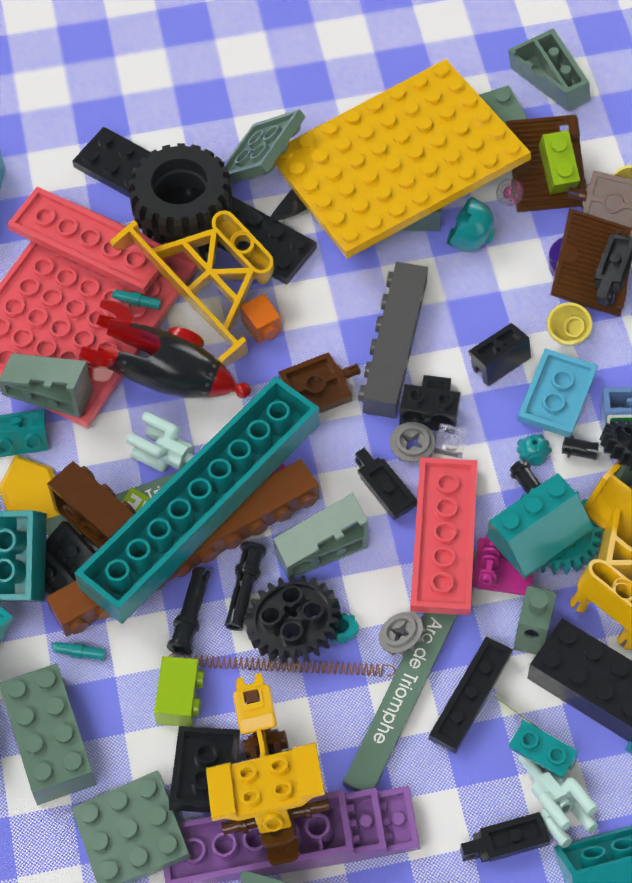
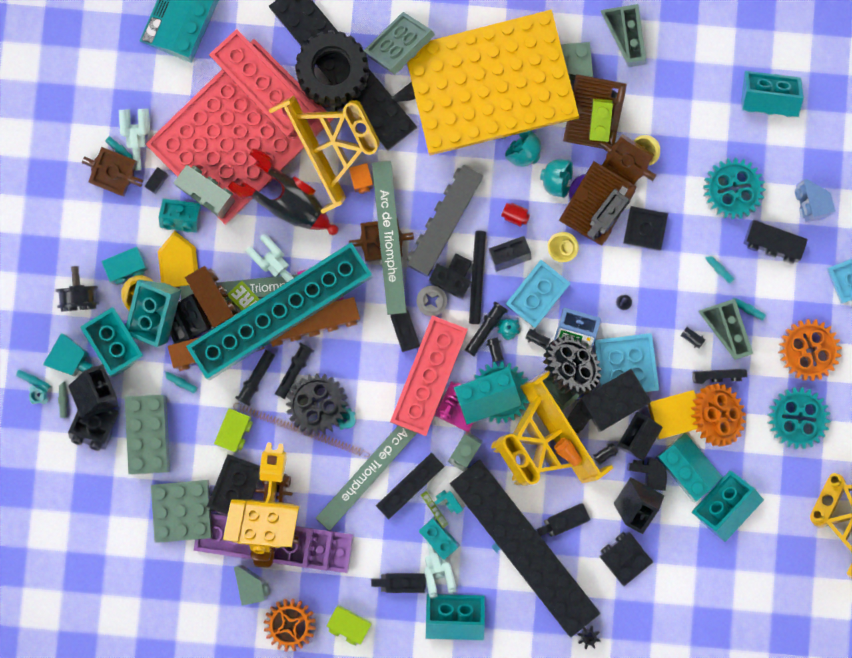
camera: 15 degrees right, 25 degrees up
(137, 299) = (281, 140): teal piece -> none
(323, 538) = (349, 355): wedge -> none
(326, 377) = (389, 238): none -> sand green tile
(398, 625) = (372, 435): light grey gear -> none
(451, 440) = (456, 308): clear plate -> none
(467, 401) = (477, 277): none -> black axle
(488, 306) = (515, 214): none -> red brick
(505, 445) = (490, 321): none -> black pin
(509, 192) = (562, 129): clear tile -> none
(527, 246) = (557, 177): none -> teal cylinder
(543, 697) = (452, 504): none -> teal bracket

